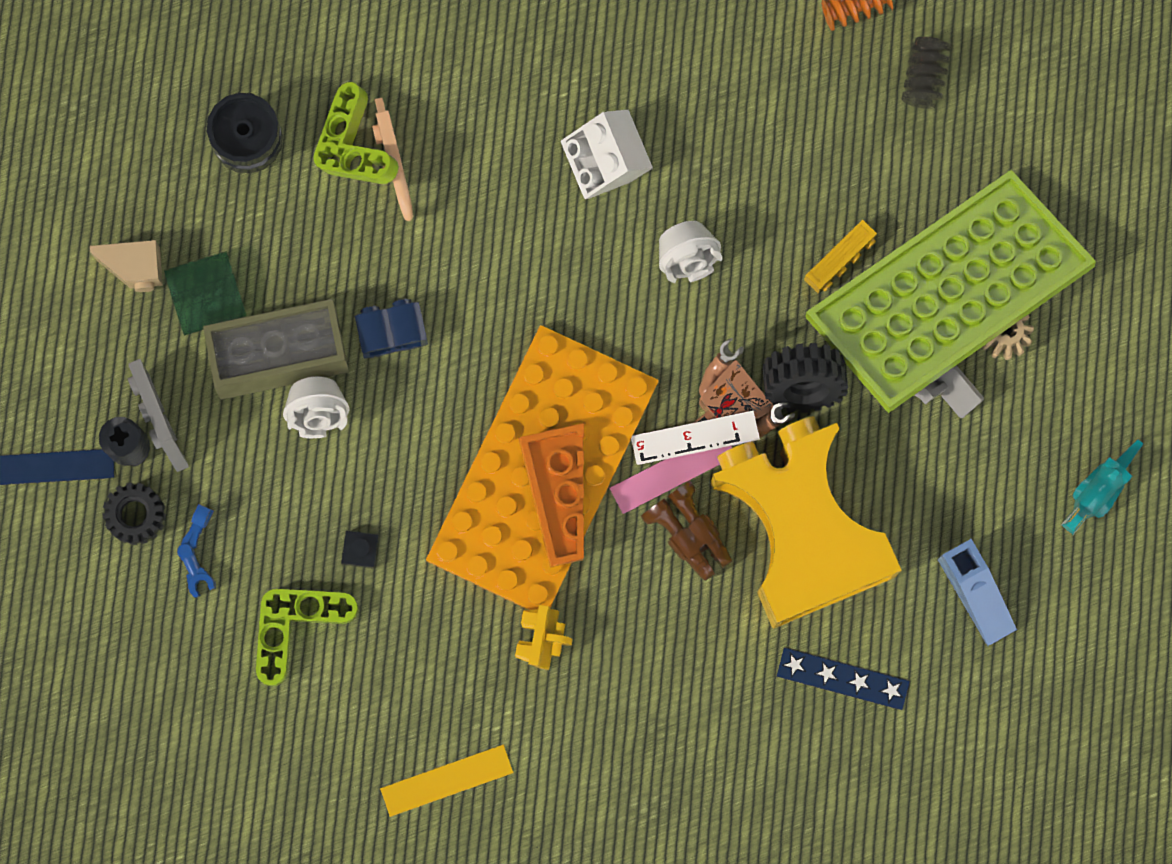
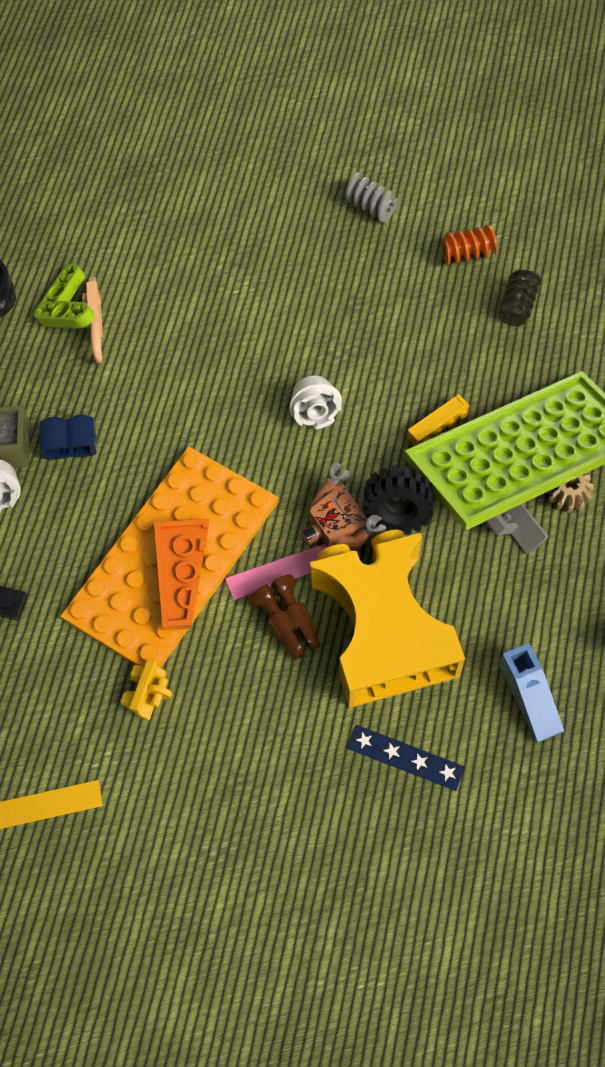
camera: 10 degrees right, 15 degrees down
(606, 153) = (261, 329): white slope -> none
(695, 437) = (300, 541): white sticker -> none

